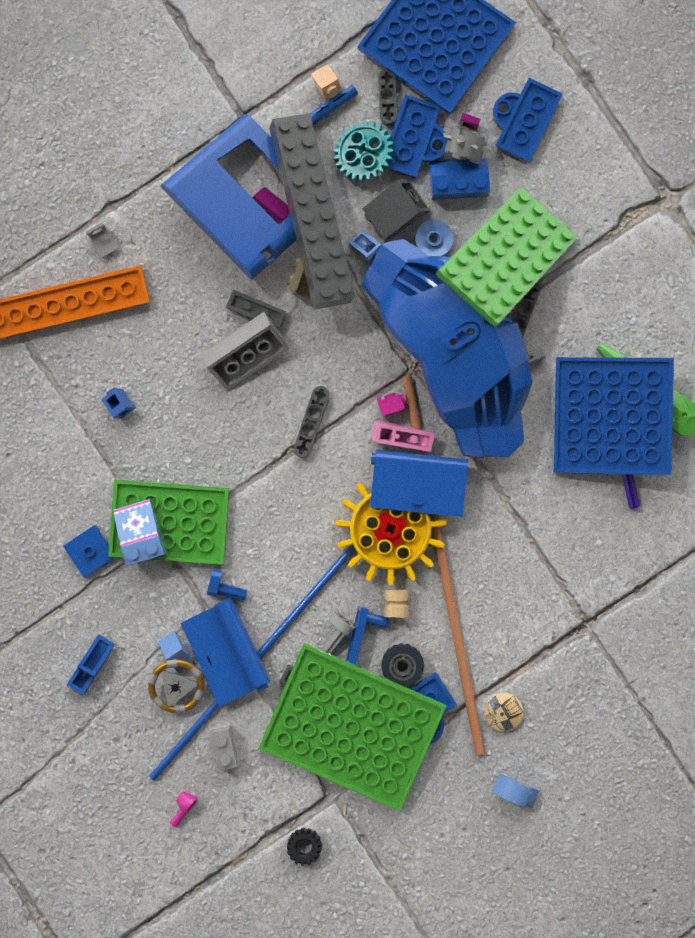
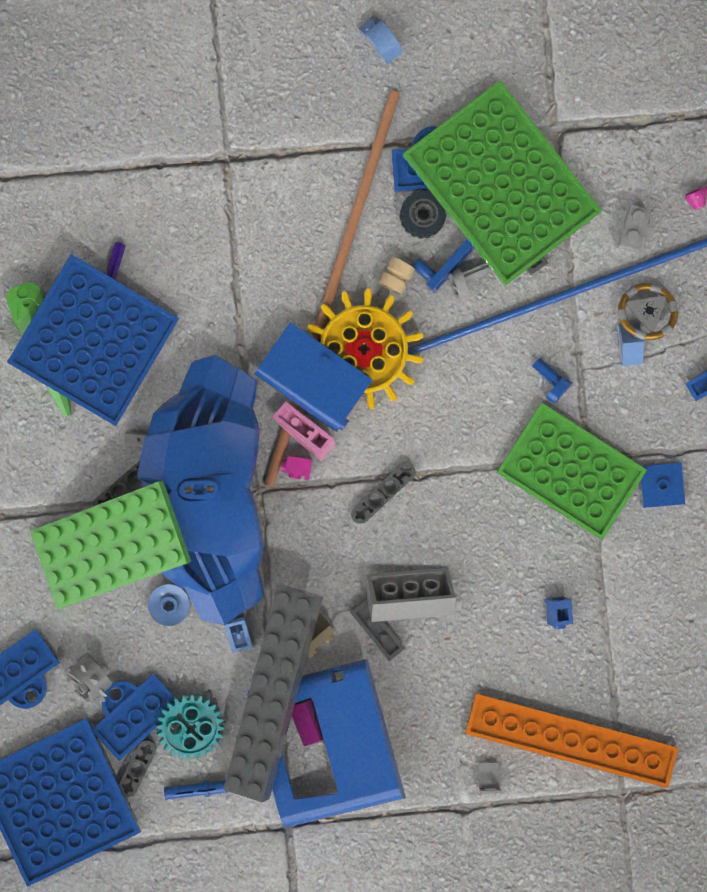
camera: 155 degrees left, 0 degrees up
(139, 532) = (605, 475): medium blue slope -> none
(225, 652) = (584, 318): blue door -> none
(300, 835) = (599, 105): black tyre -> none
(326, 82) = (189, 813): light nougat brick -> none
(395, 209) = (190, 653): dark grey slope -> none
(459, 179) = (113, 649): blue slope -> none
(469, 121) = (71, 700): magenta tile -> none
(504, 711) = (350, 119): tan dish -> none

